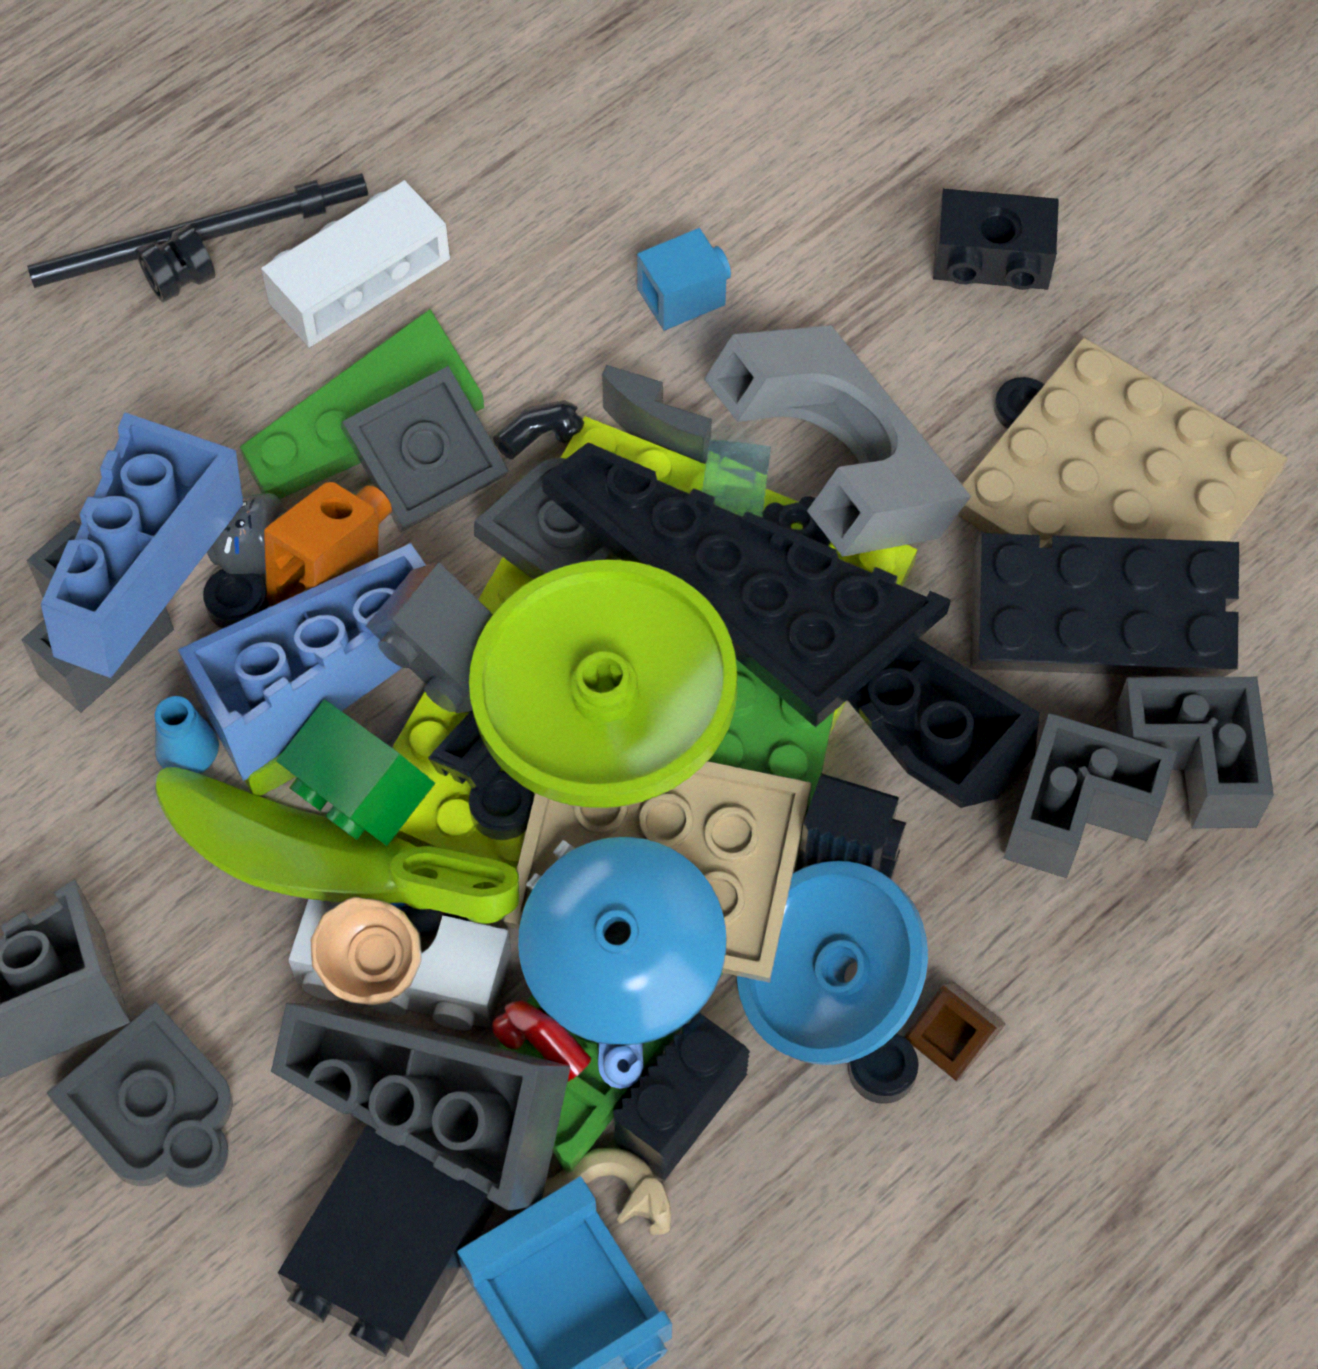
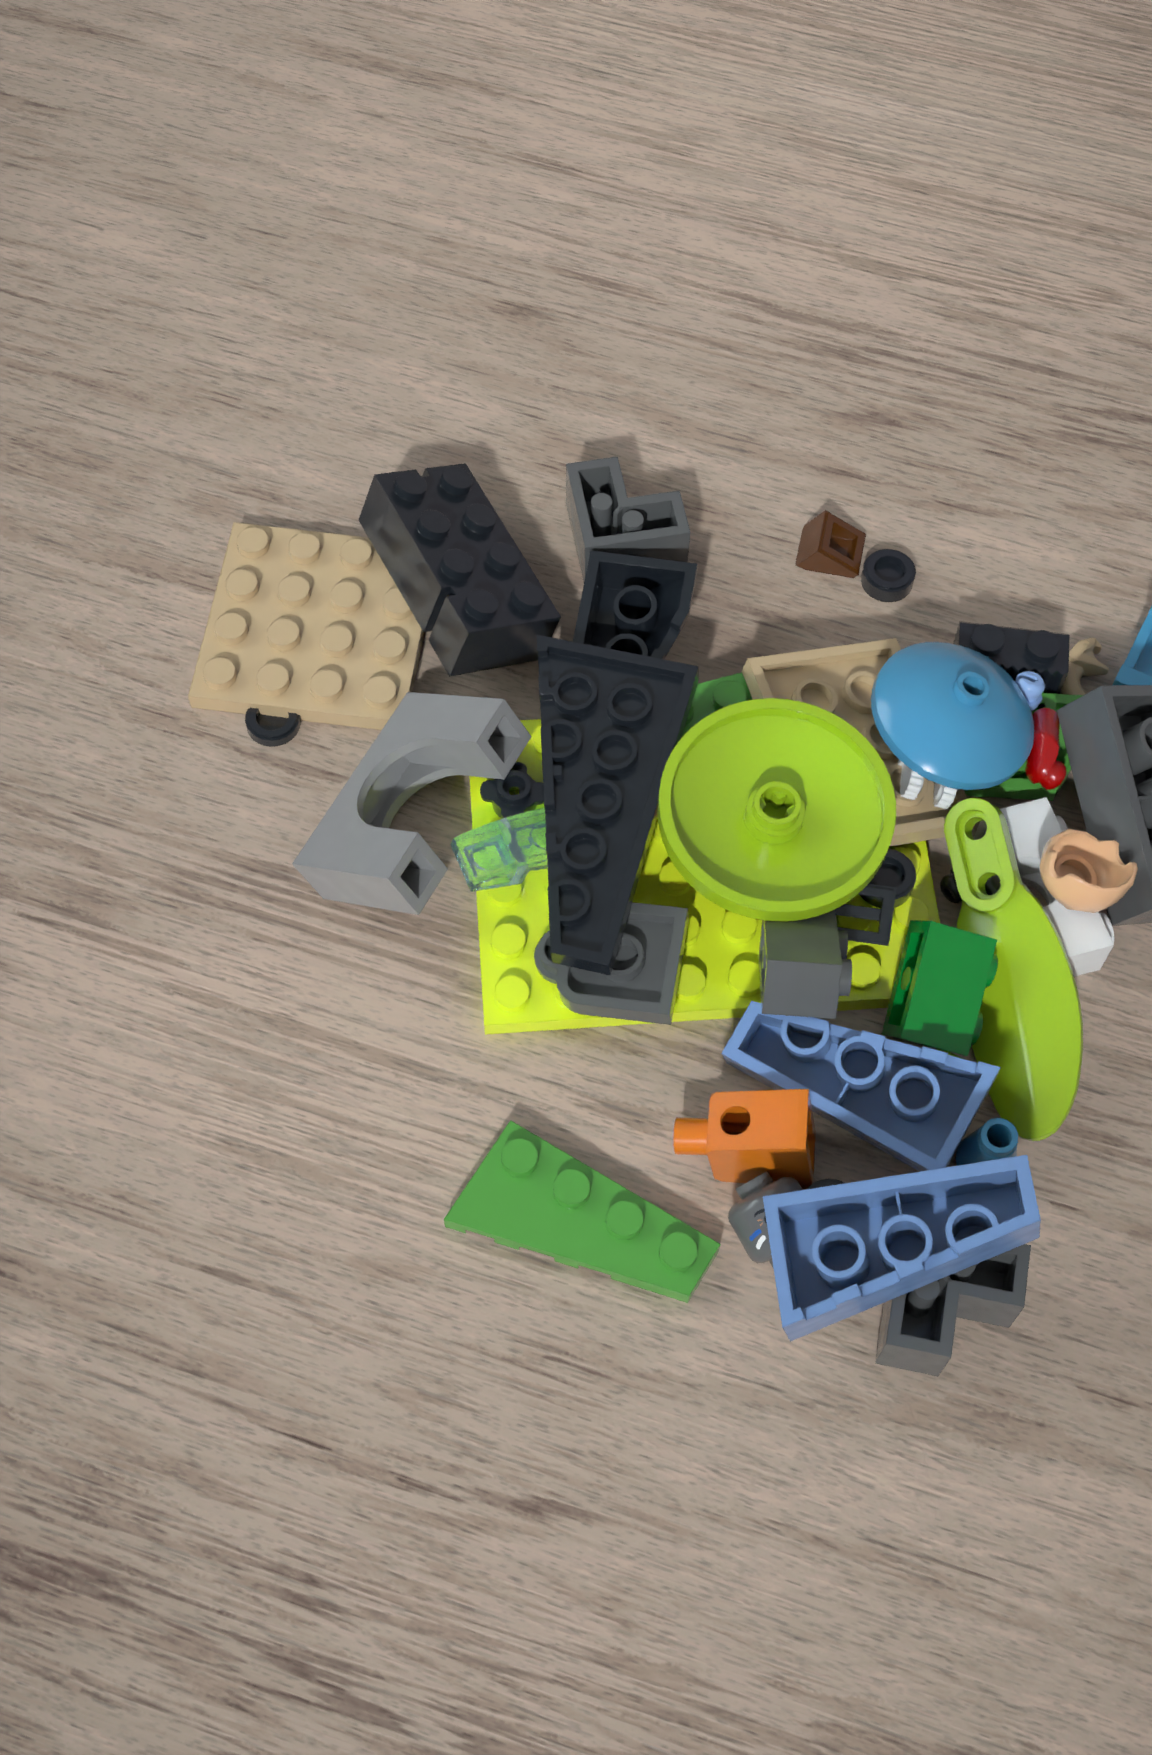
camera: 120 degrees left, 0 degrees up
(175, 263) = (528, 1489): black wheel -> none
(307, 200) = (374, 1418): black bar -> none
(356, 263) = (431, 1314): white brick -> none
(424, 448) = (603, 1124): dark grey plate -> none
(534, 422) = (507, 1062): black arm -> none
(639, 409) = (455, 971): dark grey slope -> none
(682, 278) = (293, 1017): dark azure brick -> none
(833, 919) = (865, 581): dark azure dish -> none
(851, 826) = (759, 622): black brick -> none
(996, 239) = (125, 824): black brick -> none
(1217, 740) = (526, 472): dark grey brick -> none

